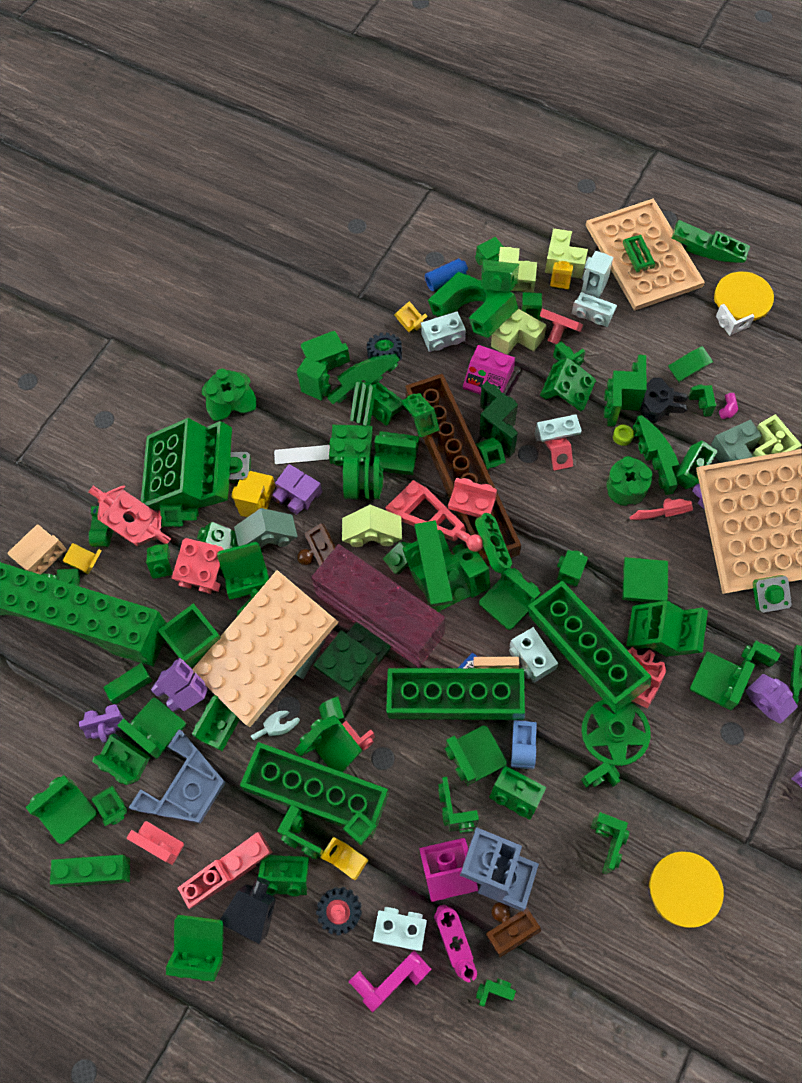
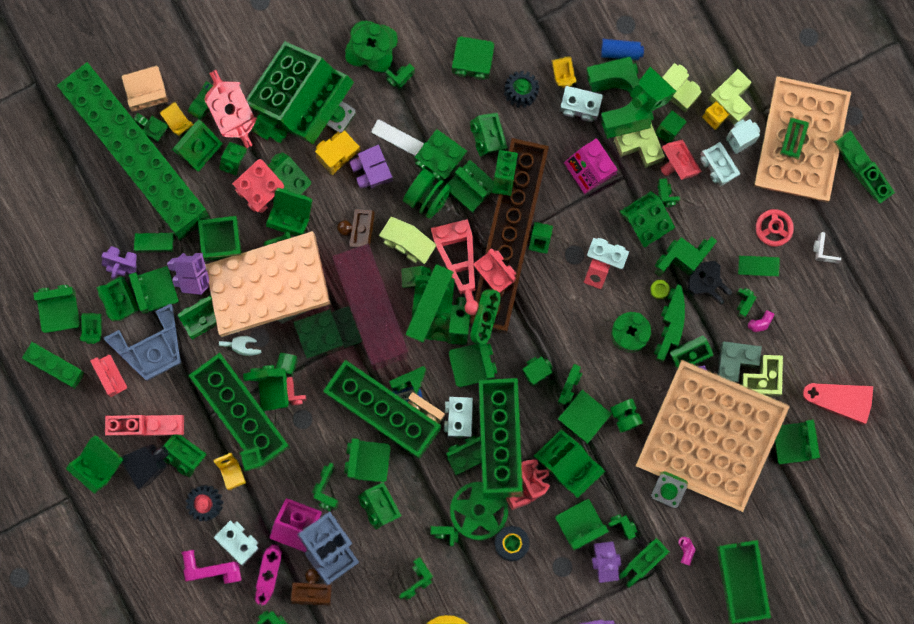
camera: 25 degrees right, 15 degrees up
(116, 567) = (197, 145): none -> green bracket
(266, 527) = (326, 189): sand green brick -> none
(272, 402) = (402, 77): none -> green bracket
(292, 824) = (209, 425): green bracket -> none
(313, 379) = (445, 81): green brick -> none
(359, 403) = (468, 126): green tile -> none
(368, 370) = (491, 102): green slope -> none
(463, 648) = (414, 378): none -> green slope
(488, 251) = (671, 53): green brick -> none
(498, 417) = (567, 213): dark green bracket -> none
(523, 745) = (406, 476): medium blue plate -> none
(565, 687) = (465, 456): none -> green bracket
(610, 554) = (573, 379): none -> green plate
(669, 509) = (647, 374): coral piece -> none
(674, 733) = (515, 538): none -> black wheel
(678, 325) = (786, 234): none -> coral piece
(682, 554) = (629, 422): none -> green wheel
(744, 295) = (854, 234): yellow tile -> none

